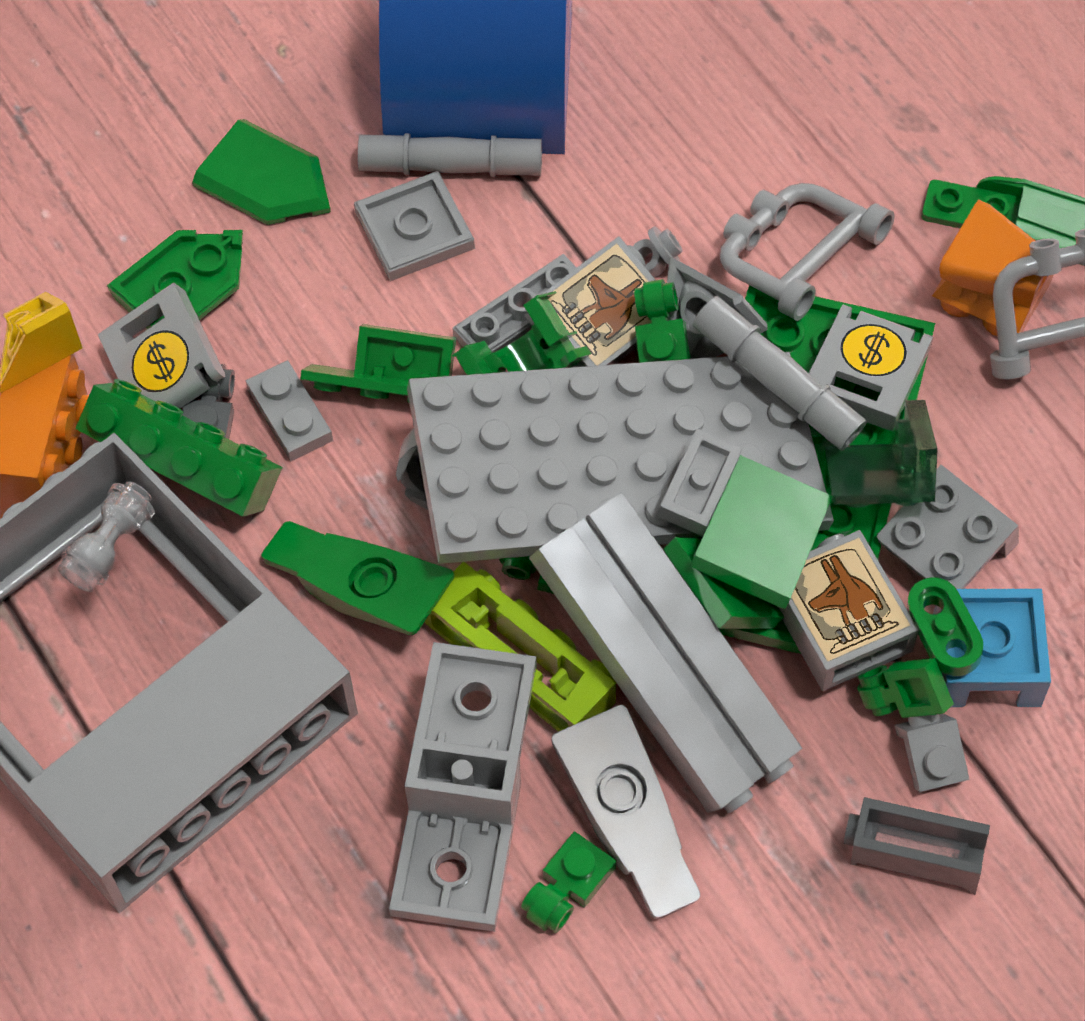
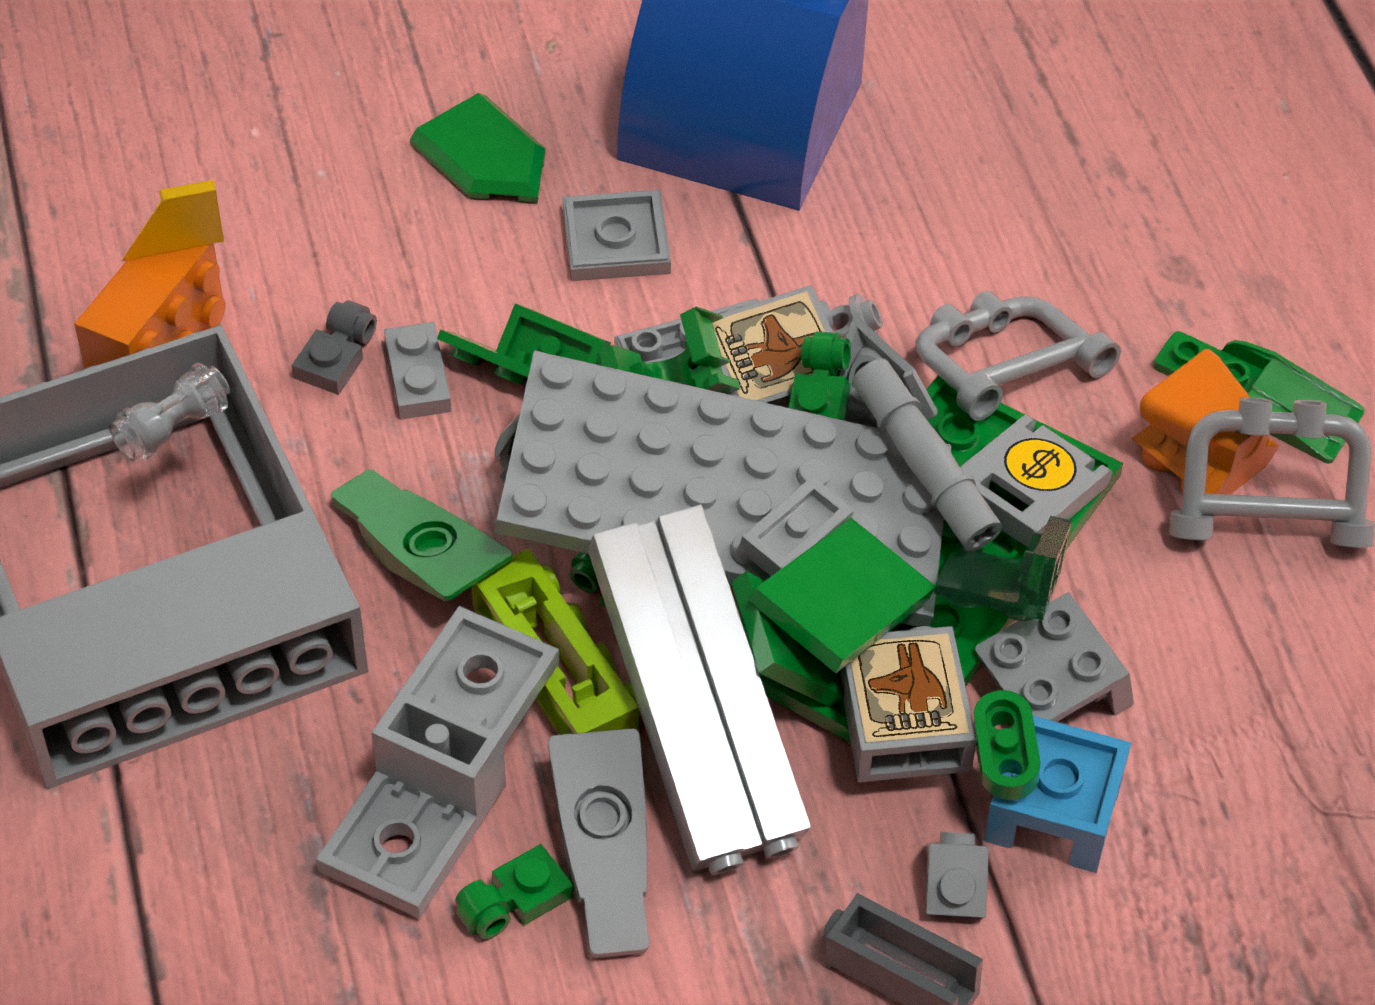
camera: 15 degrees right, 10 degrees down
(168, 354) = (305, 279): light grey container -> none
(180, 448) = (290, 369): green brick -> none
(198, 263) = (360, 223): green tile -> none
(450, 155) = (679, 178): light grey piece -> none
(909, 686) = (946, 801): green plate -> none

